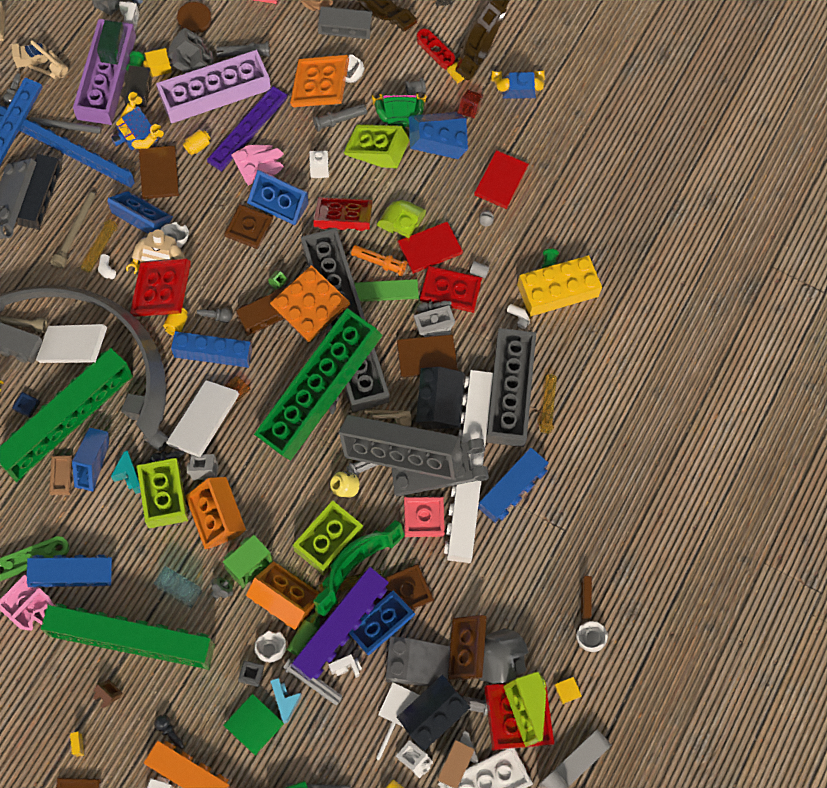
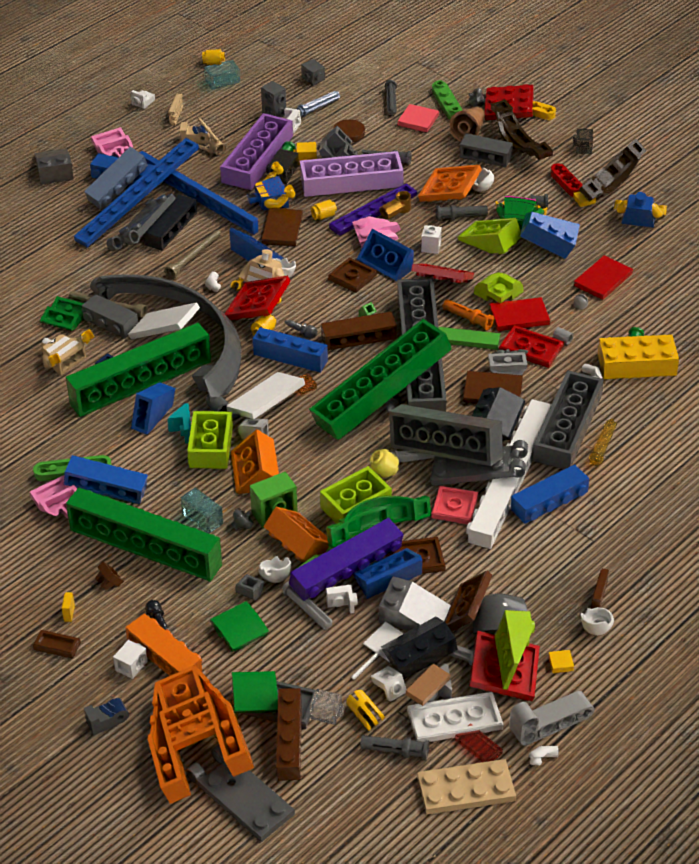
camera: 20 degrees right, 25 degrees down
(61, 475) = (121, 417): medium nougat tile -> none
(67, 125) = (216, 186): dark grey bar -> none
(99, 245) = (226, 255): clear yellow axle -> none
(111, 42) = (268, 125): clear green brick -> none
(271, 122) = (400, 204): none -> pearl gold piece
(285, 705) = (277, 614): medium azure slope -> none
(310, 303) = (387, 323): orange plate -> none
(470, 104) = (588, 217): clear red brick -> none

